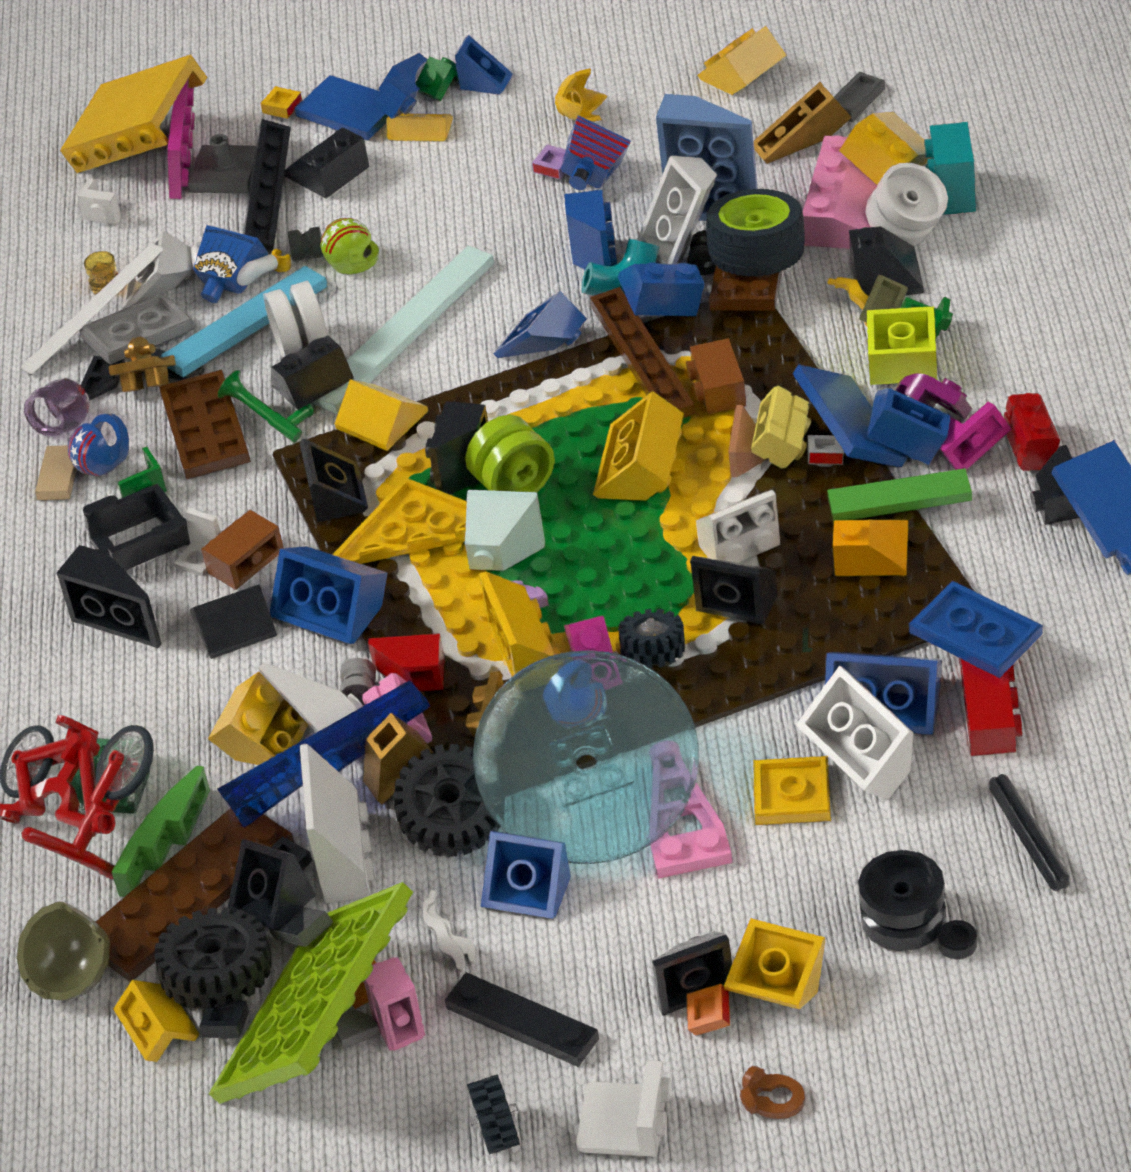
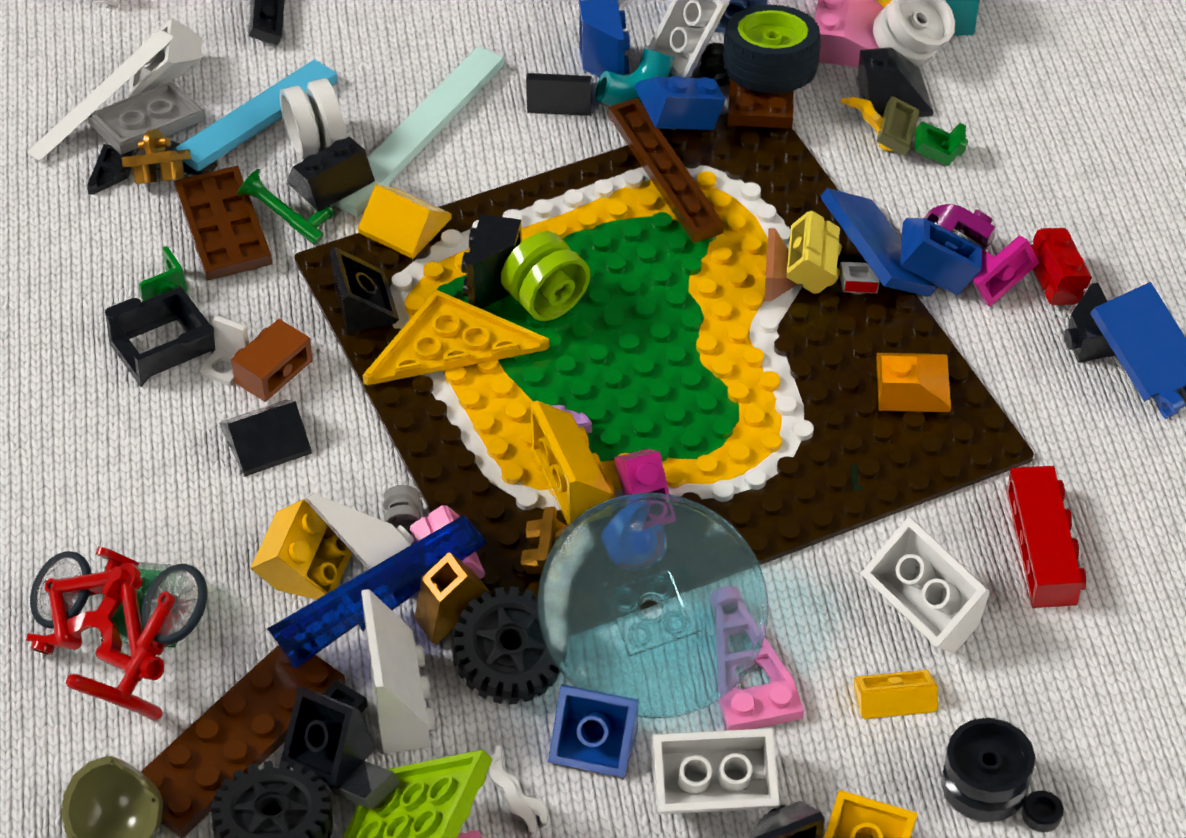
camera: 10 degrees left, 5 degrees up
(56, 475) = (72, 268): tan tile -> none
(64, 400) = (77, 193): clear purple helmet -> none
(90, 450) = (107, 246): blue helmet -> none
(101, 270) = (107, 55): clear yellow wheel -> none
(106, 597) = (135, 408): black slope -> none
(165, 825) = (210, 663): bright green slope -> none
(232, 261) = (241, 52): torso -> none
(305, 243) = (314, 36): pearl dark grey wheel -> none
(326, 593) = (363, 412): blue slope -> none
(345, 244) = (356, 39): lime helmet -> none
(412, 658) = (458, 486): red slope -> none
(502, 528) = (543, 350): light aqua slope -> none
(536, 284) = (559, 94): none -> black slope
(544, 328) = (562, 136): blue slope -> none
(635, 905) = (714, 771): none -> white slope
(640, 451) = (672, 271): yellow slope -> none
(652, 637) = (704, 473): black wheel -> none
(716, 376) = (743, 195): dark orange brick -> none
(733, 589) = (783, 424): black slope -> none
(740, 529) = (783, 360): white slope -> none
(791, 790) = (856, 641): yellow tile -> none
(825, 837) = (896, 694): none -> yellow slope
(900, 495) = (936, 327): bright green tile -> none
(901, 344) = (922, 170): neon yellow brick -> none
(902, 684) = (962, 528): blue slope -> none
(976, 629) = (1032, 476): blue tile -> none
(1029, 832) = (1103, 695): black axle -> none

